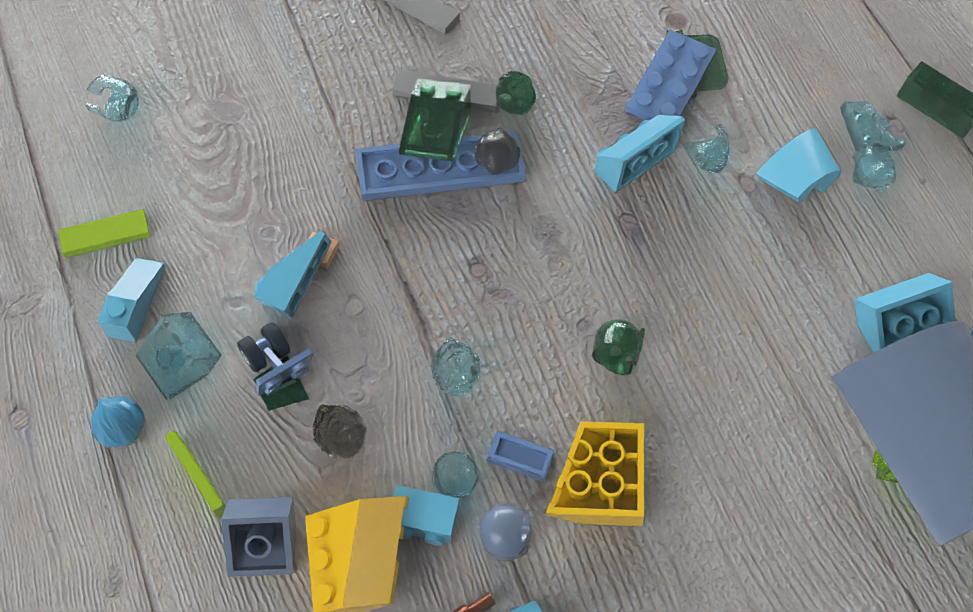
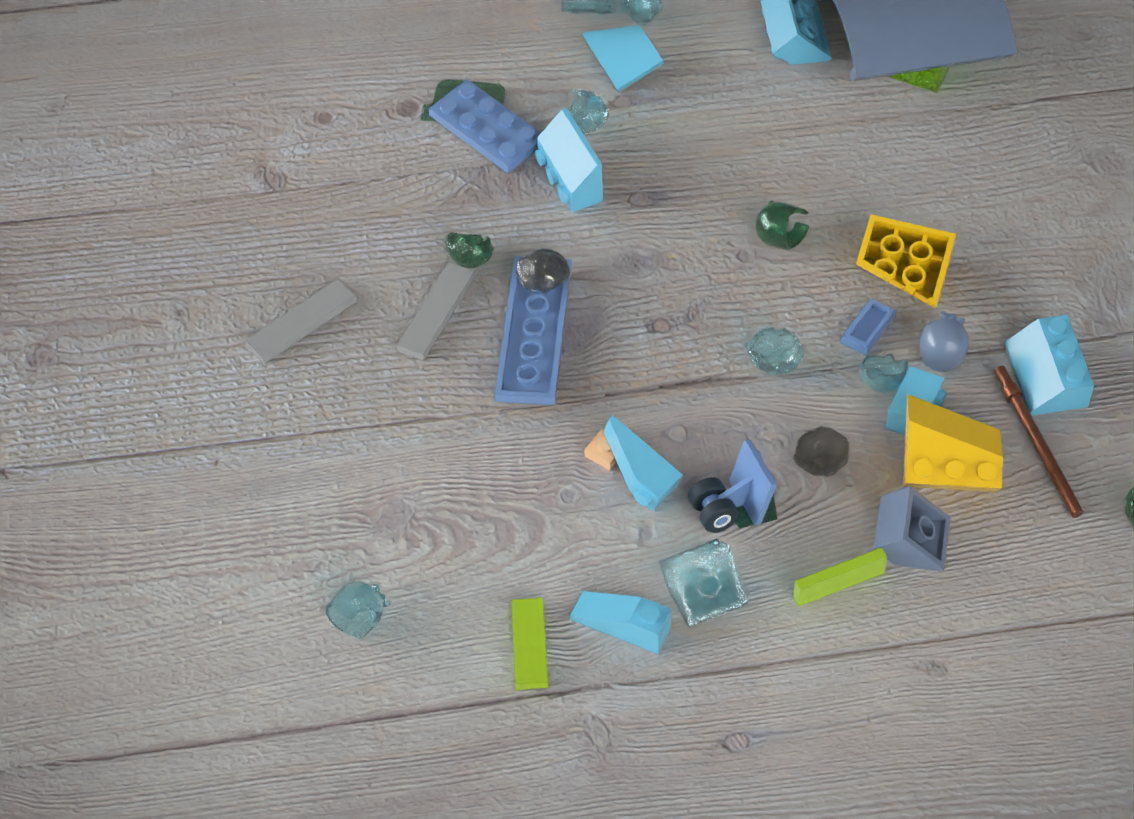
camera: 70 degrees left, 10 degrees down
(117, 421) = (765, 643): dark azure hair -> none
(435, 119) = (485, 315): clear green slope -> none

